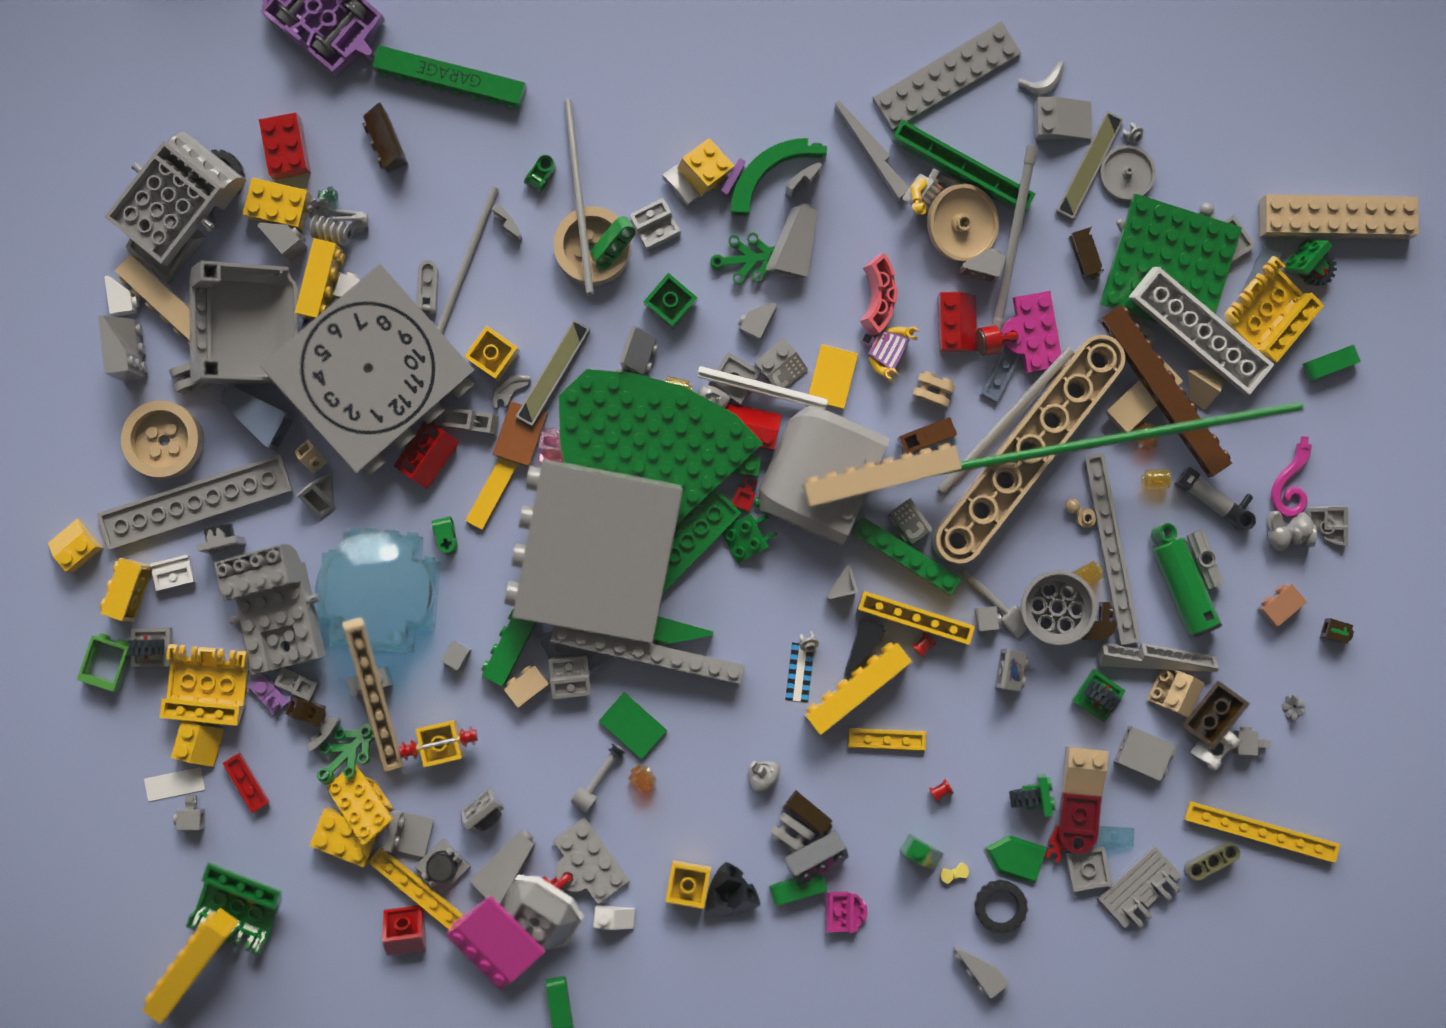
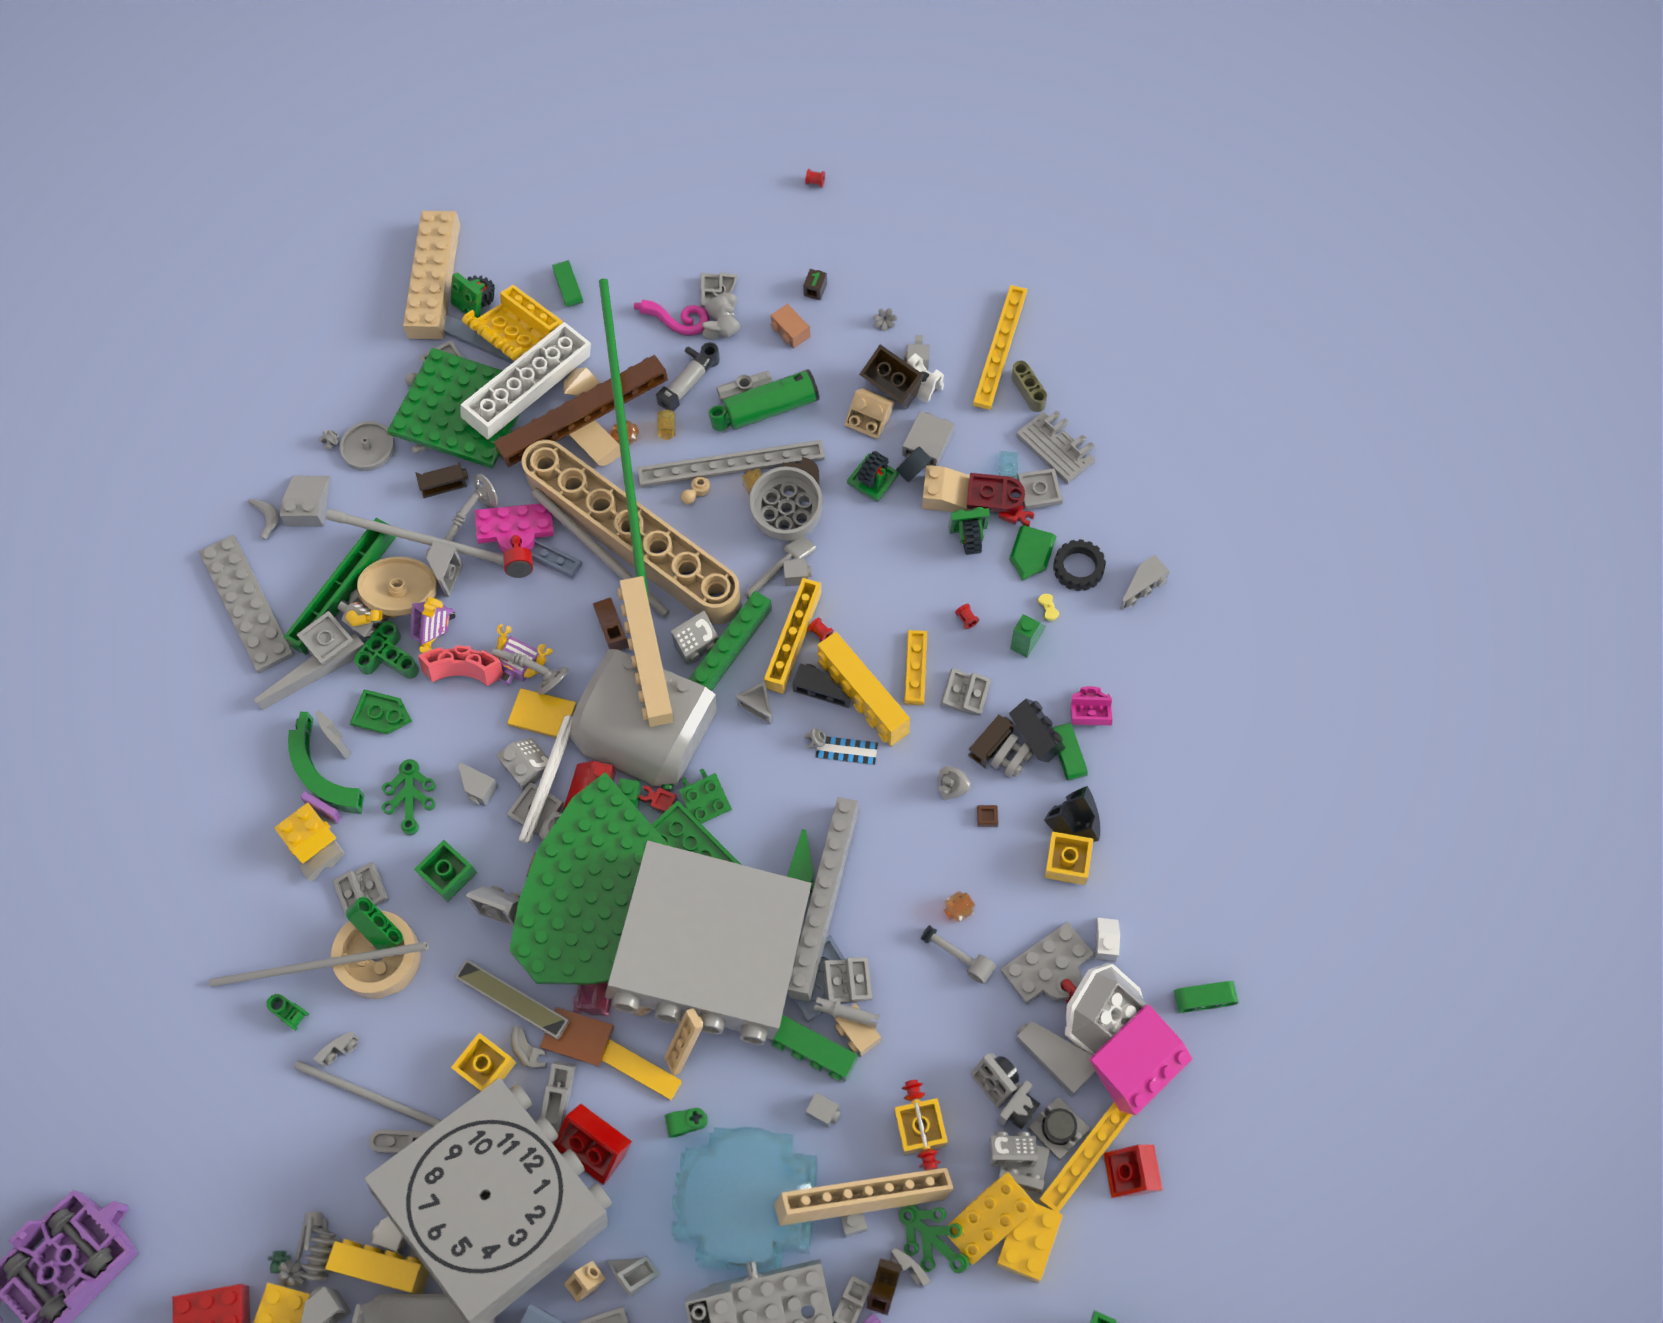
camera: 85 degrees left, 20 degrees down
(384, 139) = (220, 1189): dark brown slope -> none
(417, 825) = (1013, 1150): none -> light grey slope
(449, 77) = (161, 1116): green brick -> none
(454, 832) = (1019, 1108): none -> light grey piece
(506, 531) = (683, 1041): none -> tan plate
(538, 676) = (846, 1012): none -> light grey pin
(632, 725) = (901, 918): green tile -> none
(733, 807) = (987, 815): none -> reddish brown tile
(795, 243) = (398, 744): light grey slope -> none
(832, 221) = (380, 713): none -> green tile
(860, 788) = (965, 692): none -> light grey slope
(867, 380) = (550, 677): none -> light grey dish
(893, 219) = (383, 654): none -> green beam
(901, 160) = (325, 638): none -> light grey bracket
(922, 258) = (429, 622): none -> torso
(928, 380) = (559, 609): tan brick -> none
(957, 322) = (497, 597): red slope -> none
(1011, 670) = (846, 551): light grey slope -> none
(1068, 297) = (481, 493): none -> light grey dish
(1089, 165) = (355, 477): olive tile -> none
(1110, 738) = (913, 464): none -> black wheel
(1155, 657) = (837, 429): light grey slope -> none

